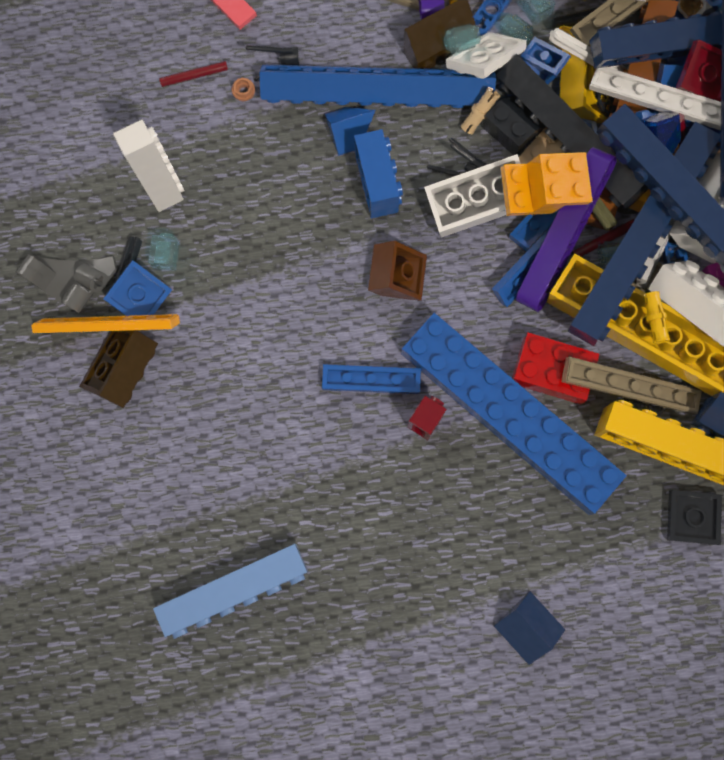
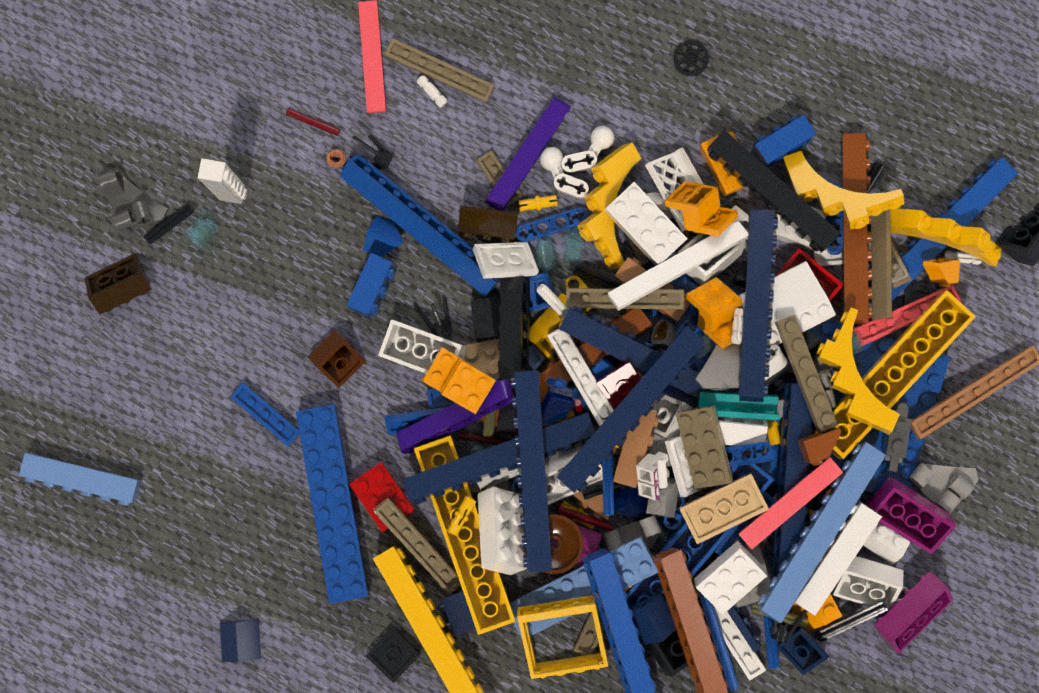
camera: 35 degrees right, 5 degrees up
(106, 323) = (128, 253): light orange tile -> none
(137, 292) = (162, 247): blue plate -> none
(427, 417) = (277, 466): dark red brick -> none
(462, 38) = (495, 238): clear light blue brick -> none
(479, 110) = (472, 294): tan pin -> none

